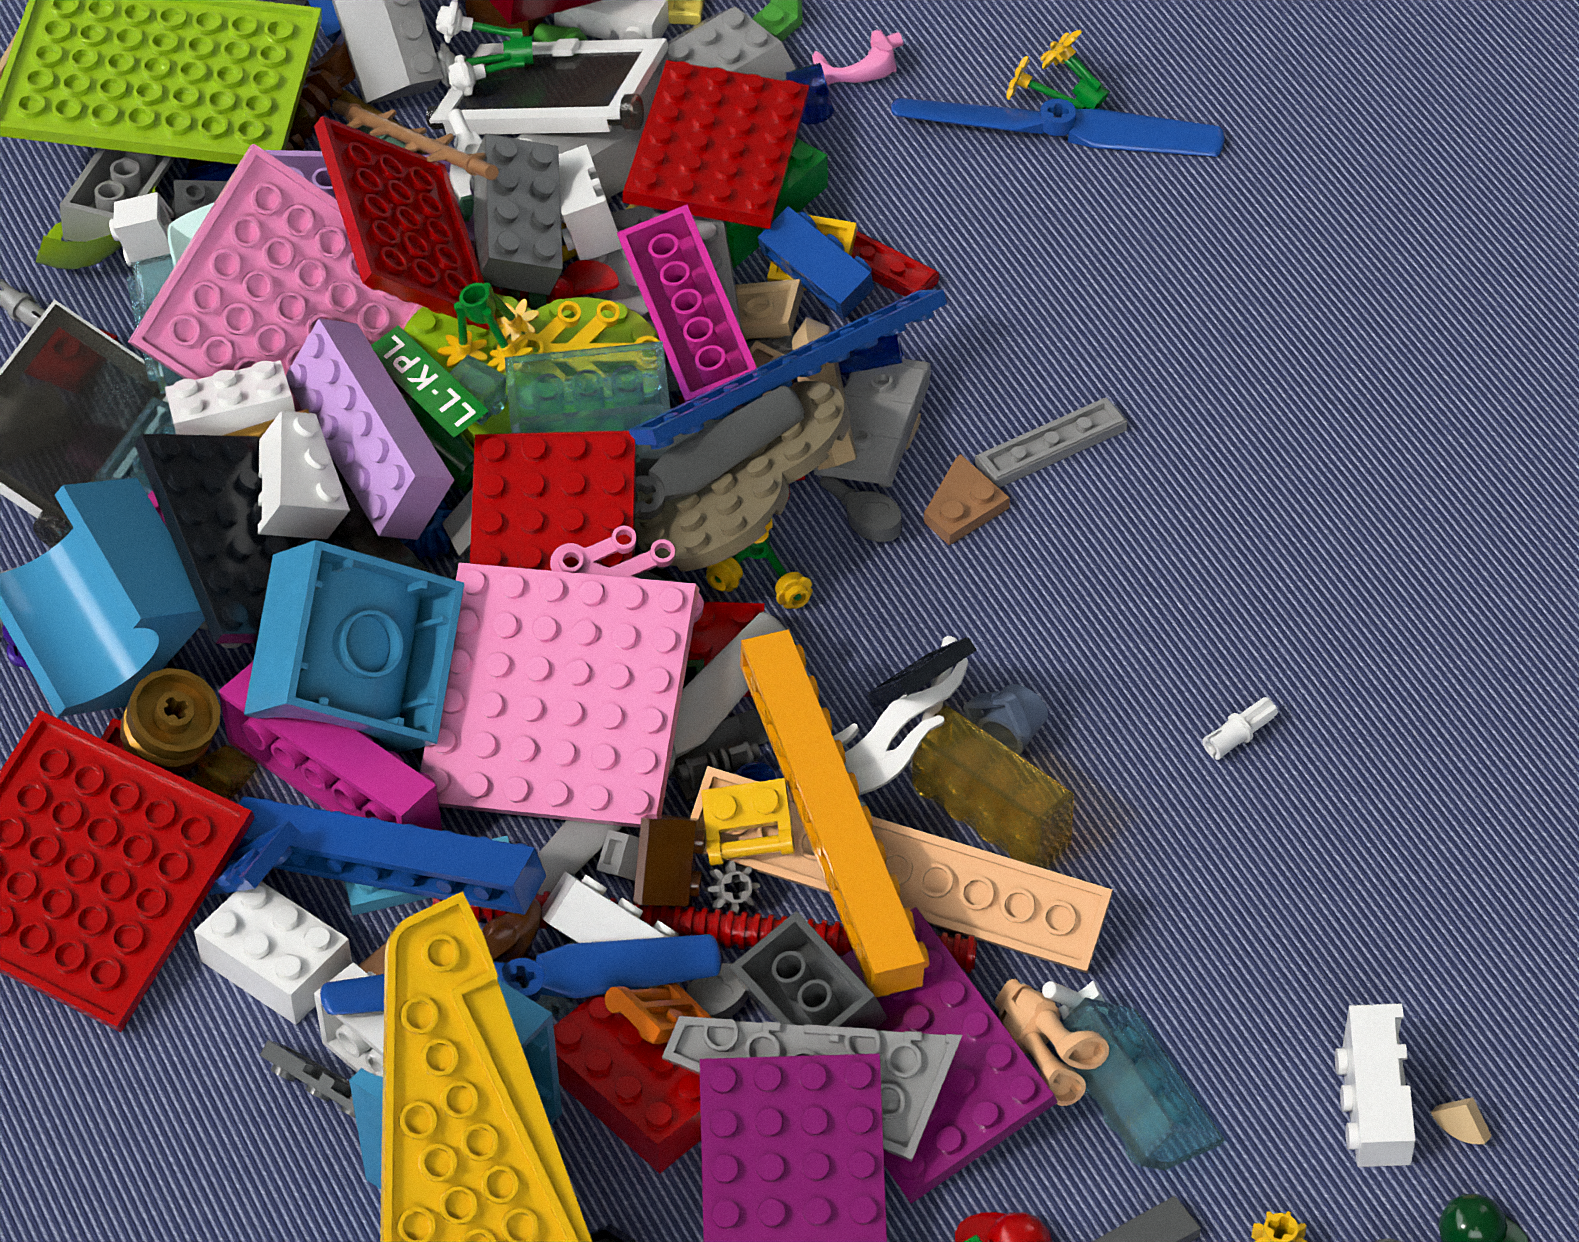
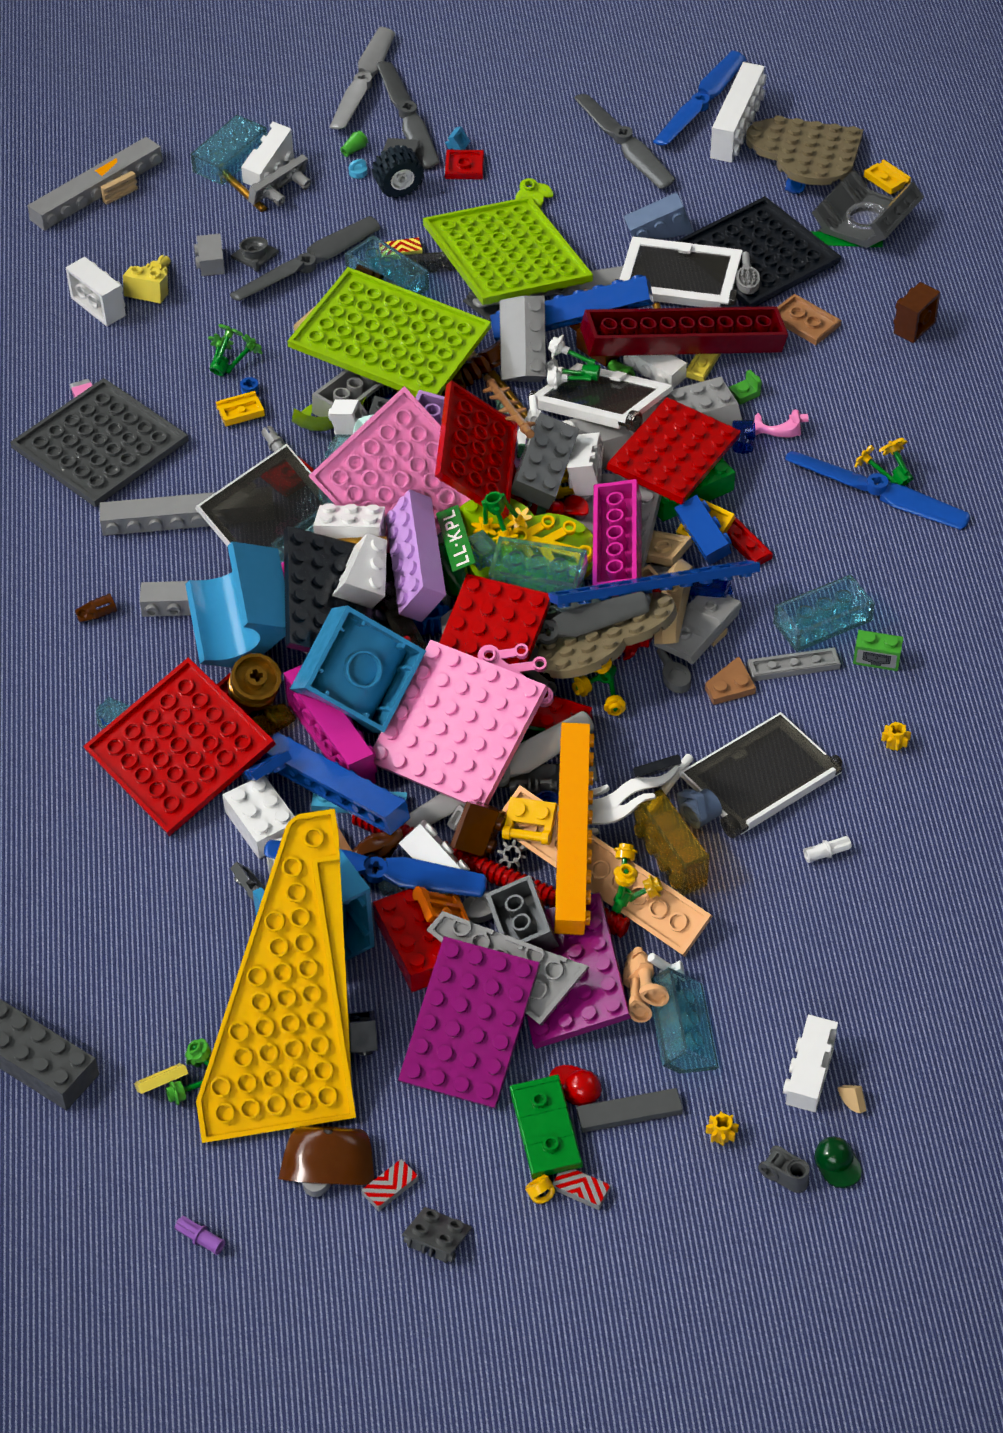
camera: 20 degrees right, 0 degrees up
(960, 866) = (626, 876): none -> yellow plant
(1067, 346) = (823, 613): none -> clear light blue brick
(1082, 633) = (762, 773): none -> clear smoke door
(1179, 382) = (878, 650): none -> bright green brick
(1268, 513) = (896, 736): none -> yellow gear

